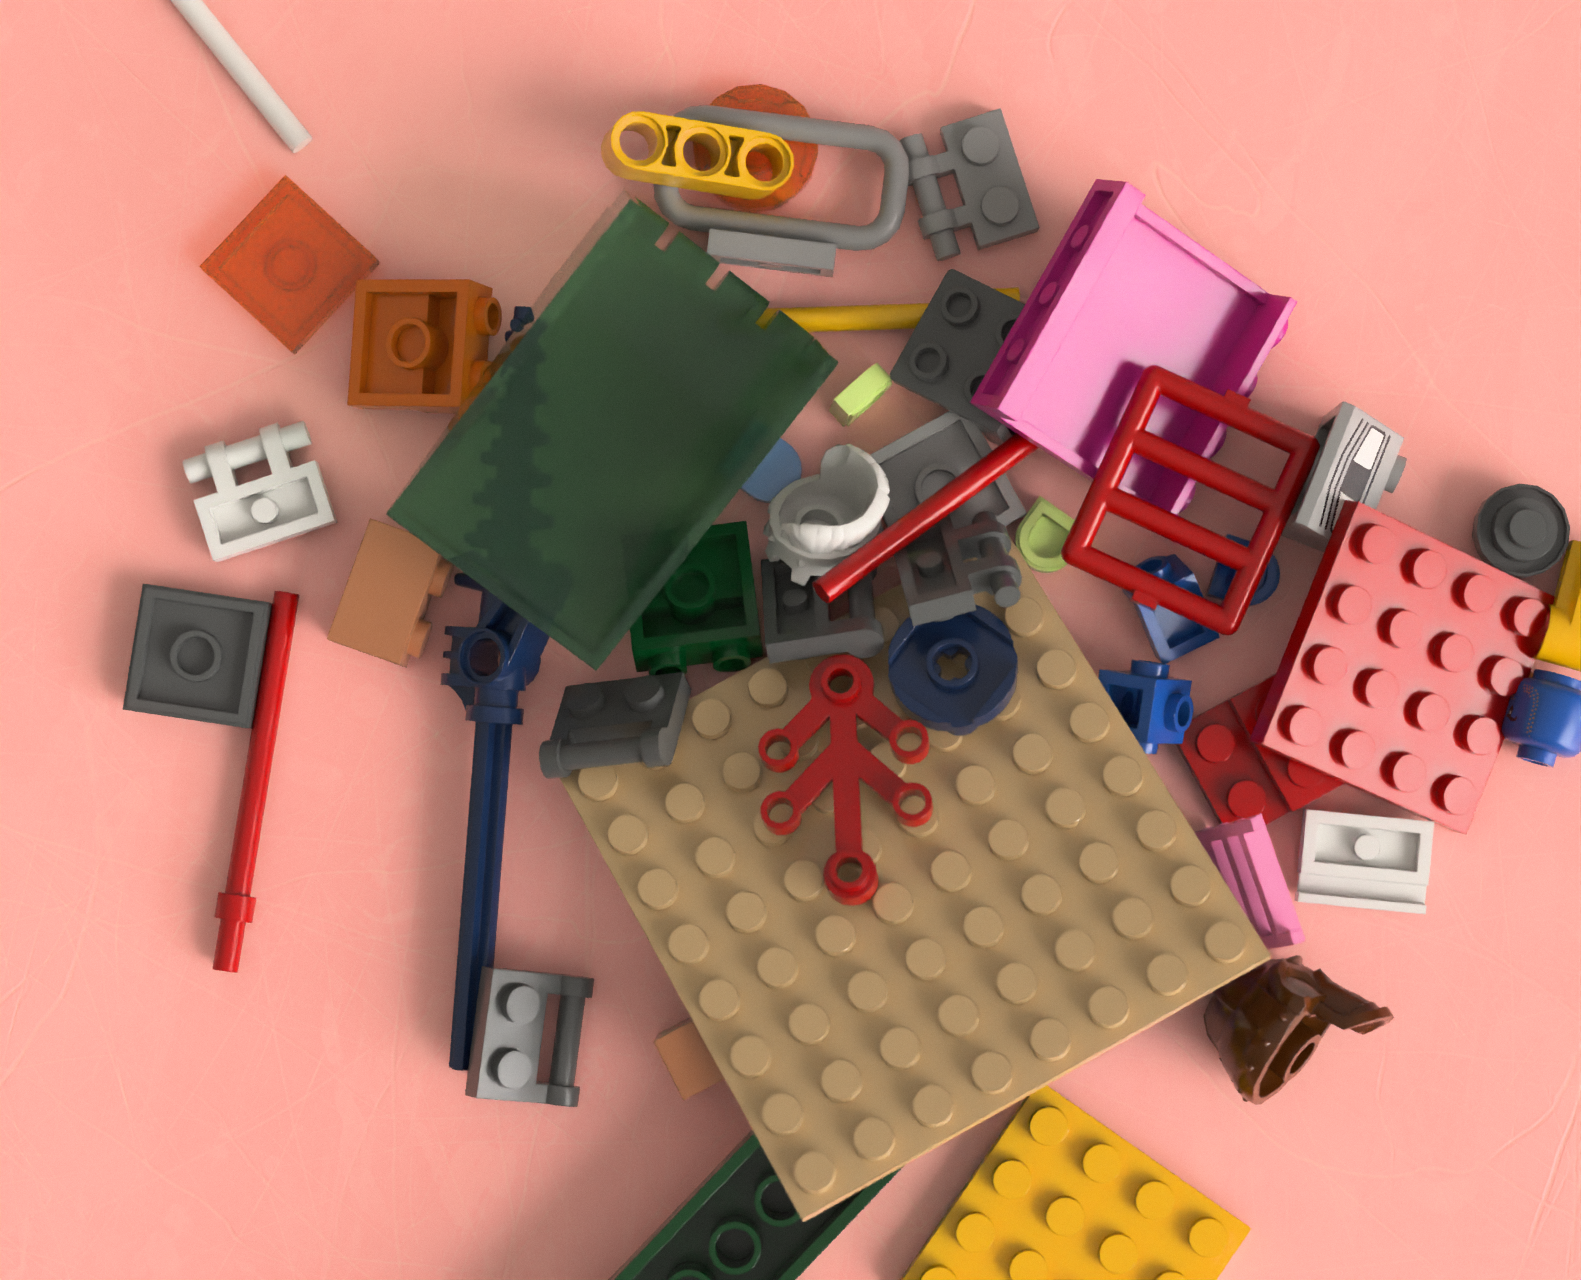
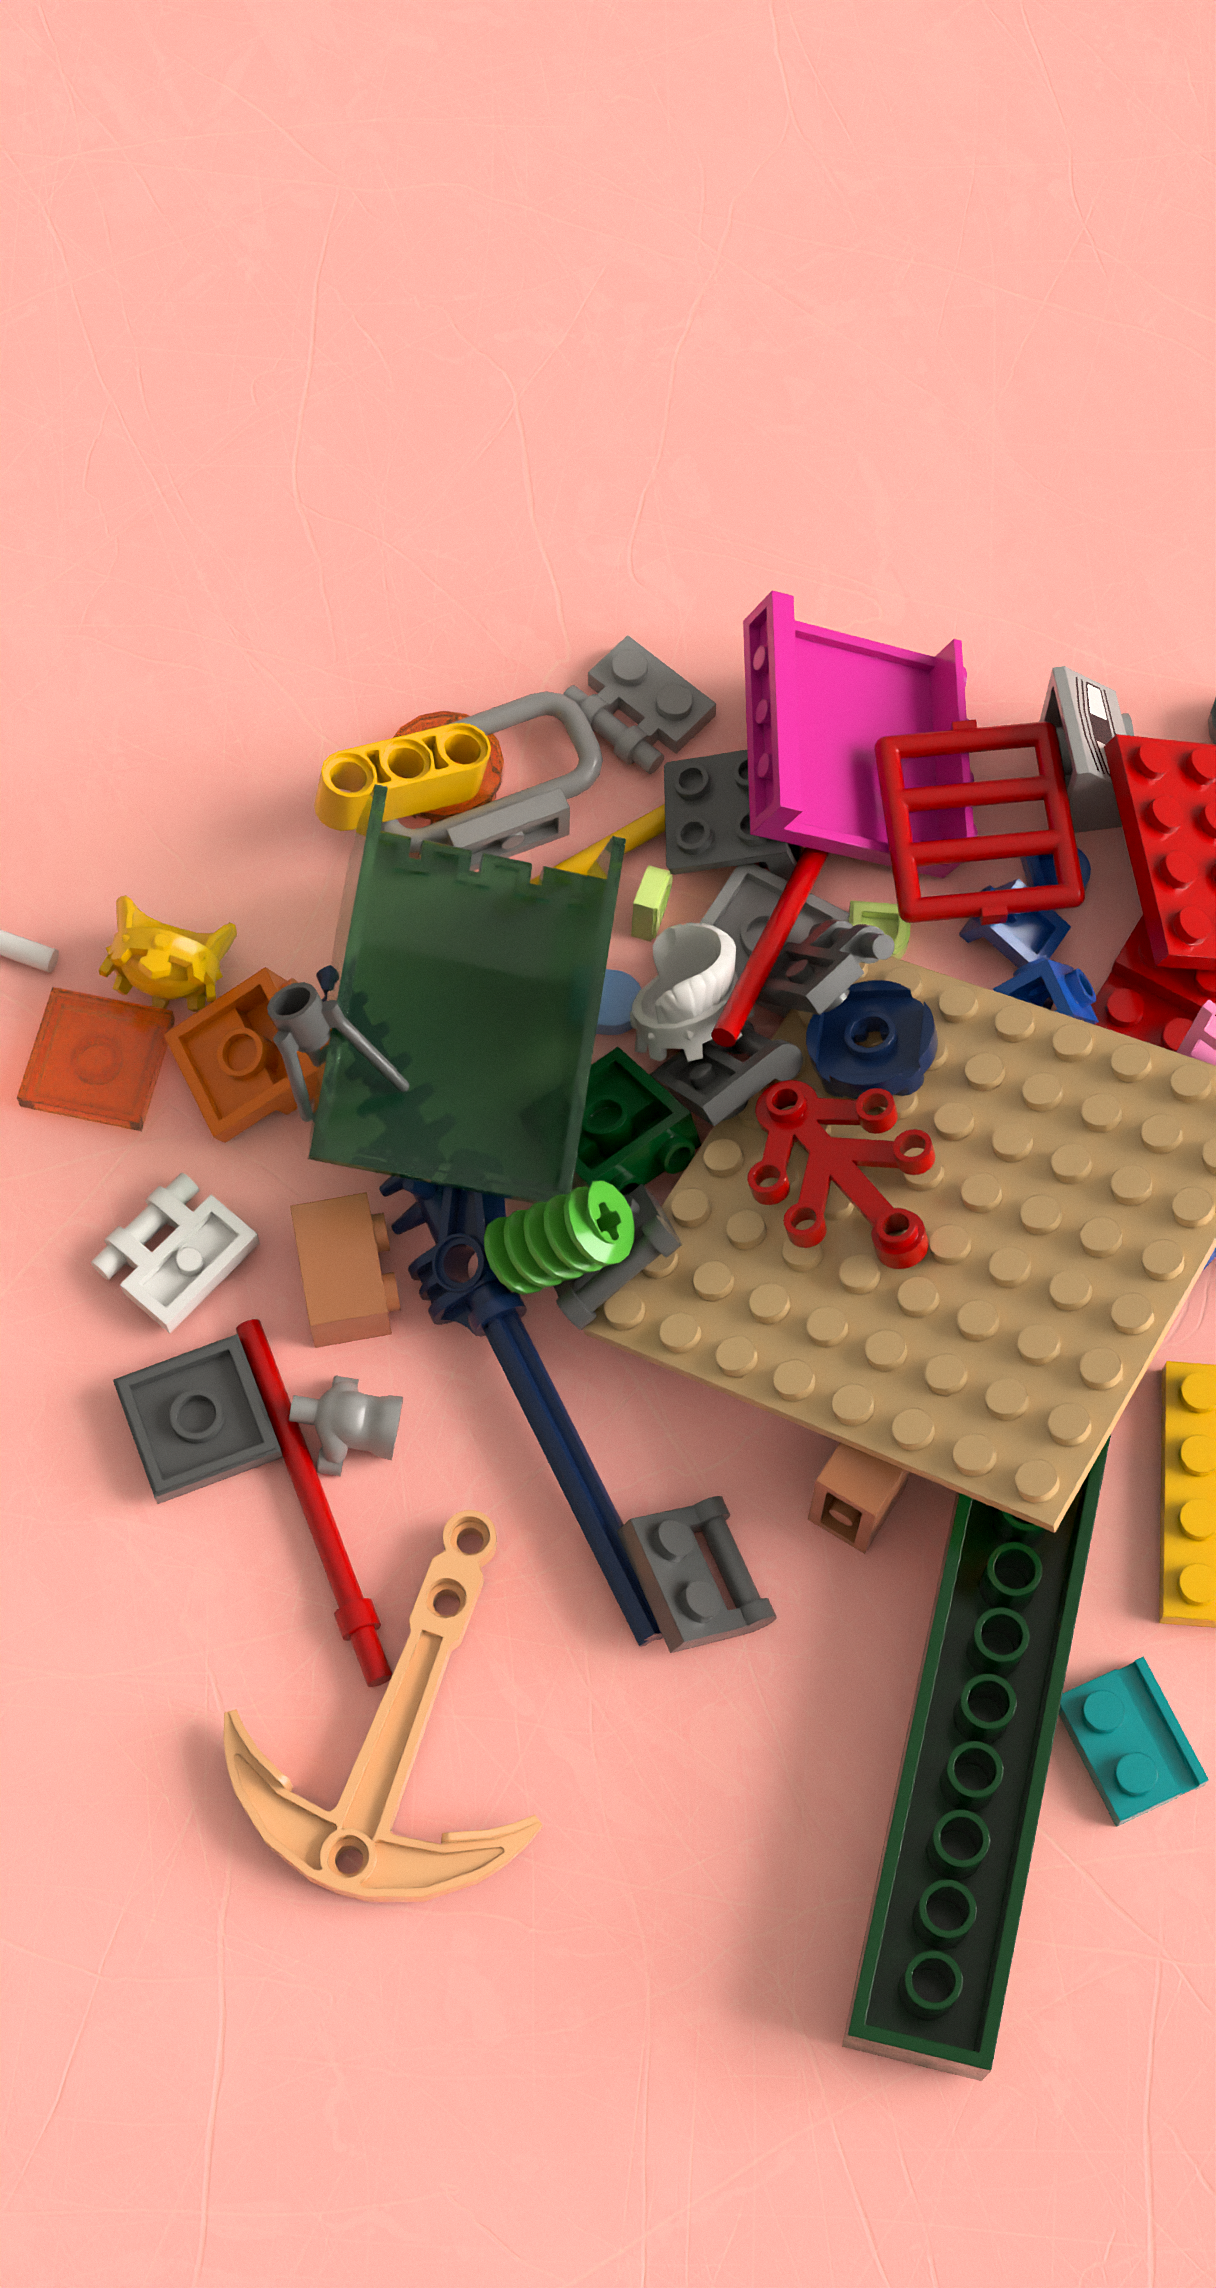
camera: 30 degrees left, 20 degrees down
(98, 1069) = (363, 1820): none -> light nougat piece
(321, 733) = (349, 1421): none -> light grey piece
(396, 207) = (165, 958): none -> yellow hair
(445, 397) = (305, 1027): none -> dark grey plant
(568, 699) = (560, 1238): none -> bright green piece

